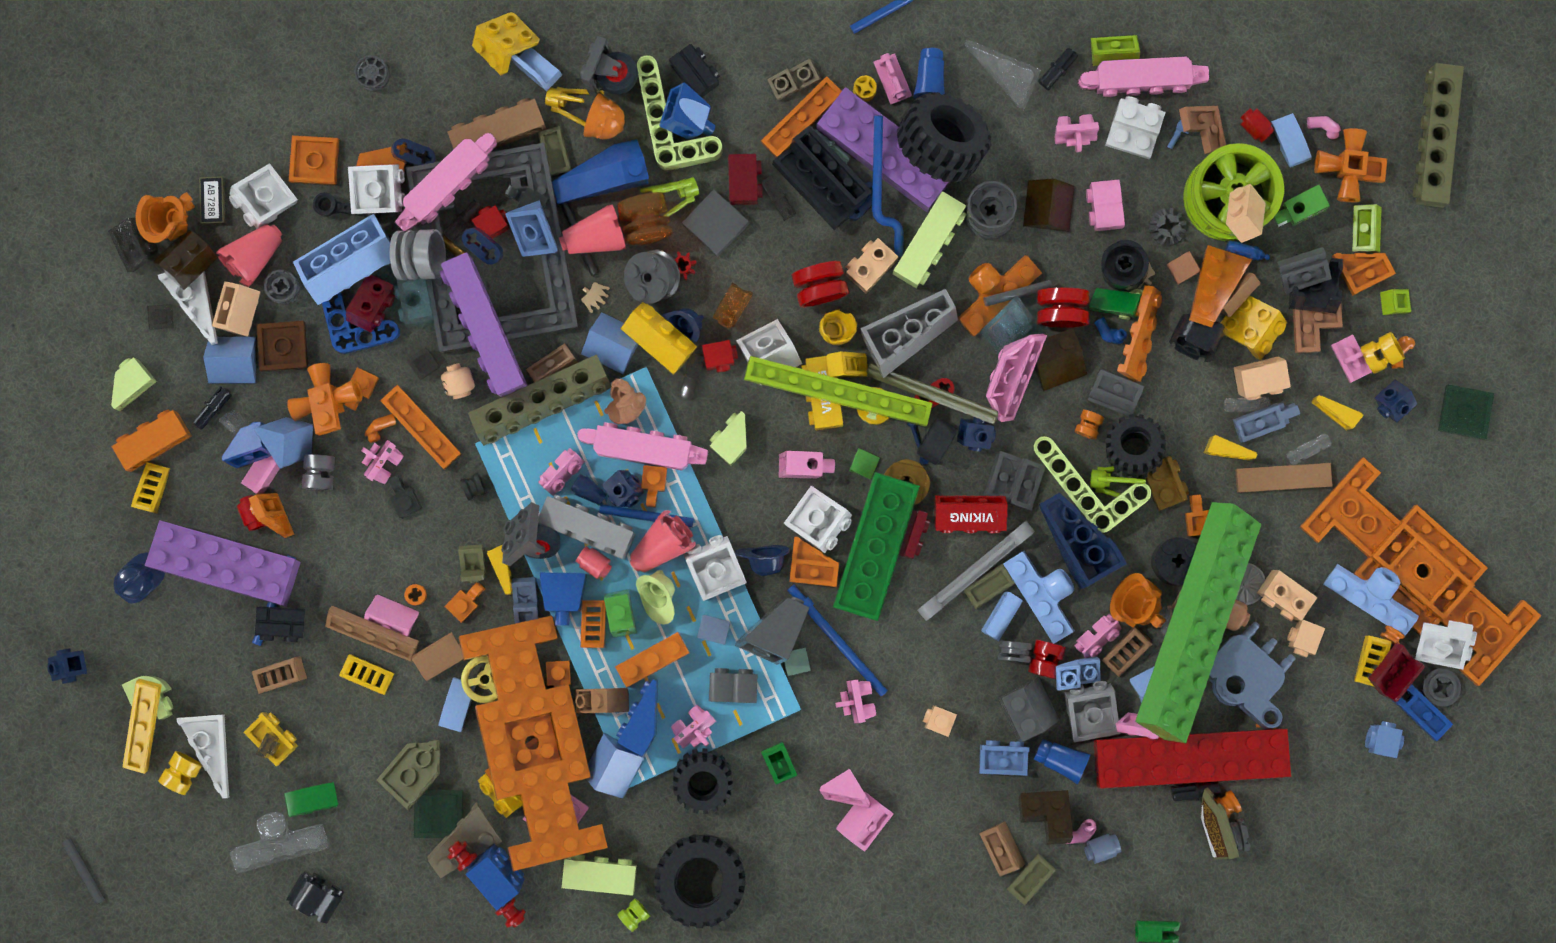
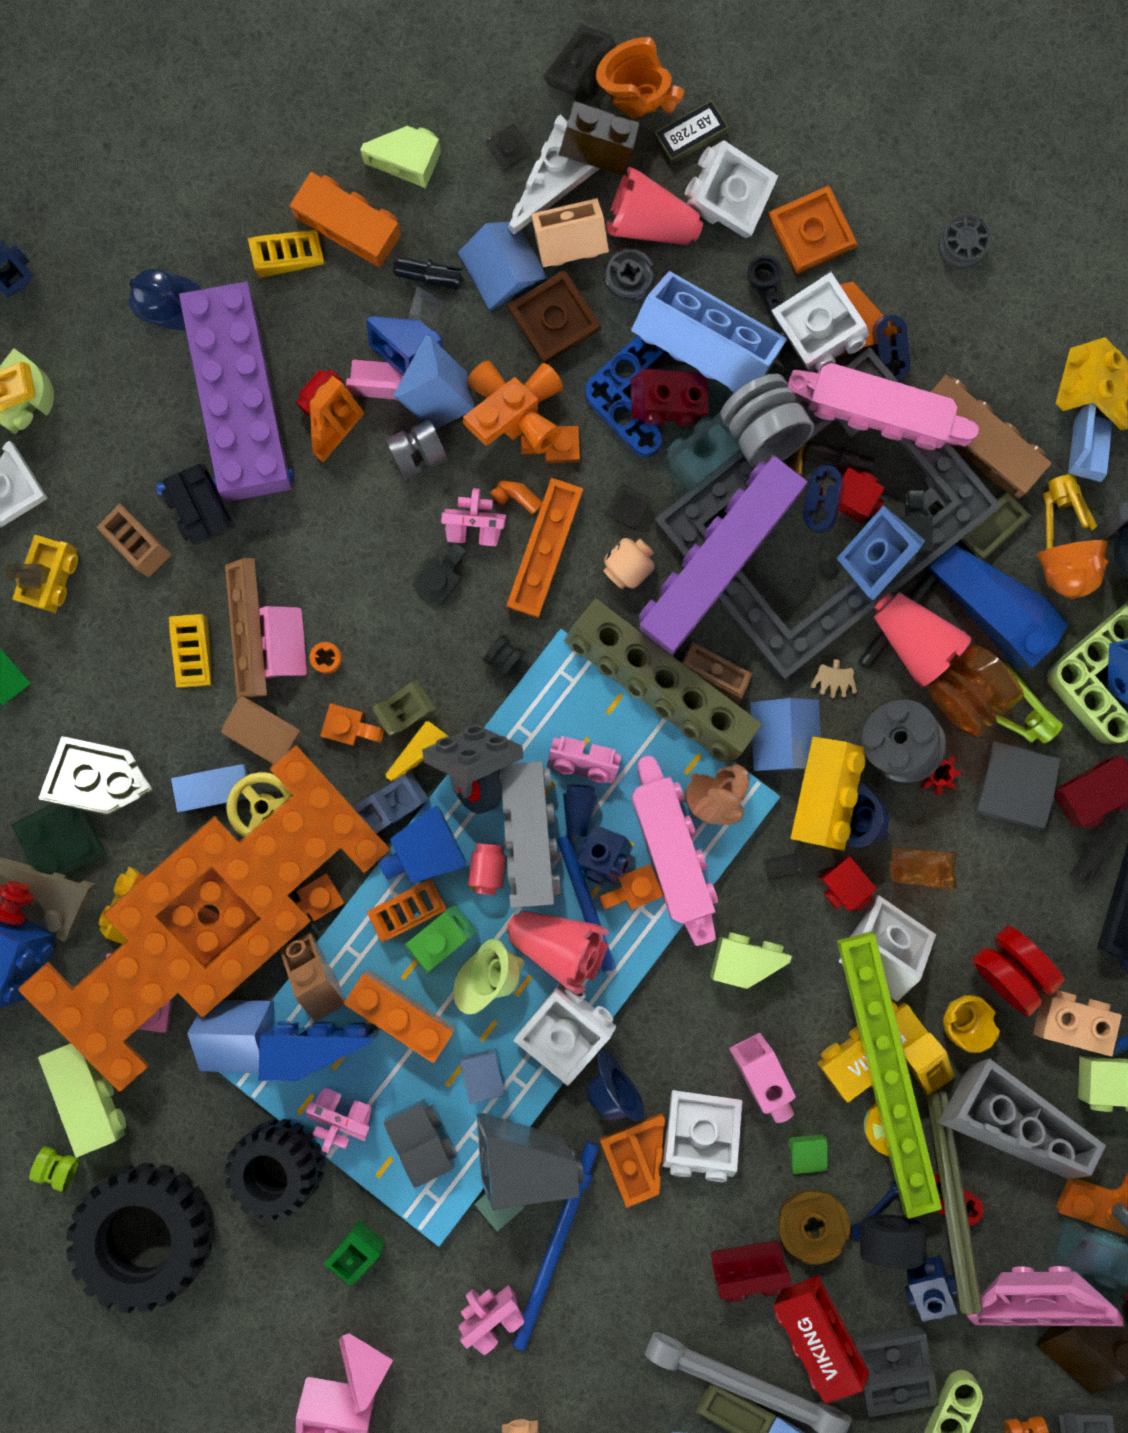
camera: 60 degrees right, 0 degrees up
(876, 546) = (709, 1233): green tile -> none

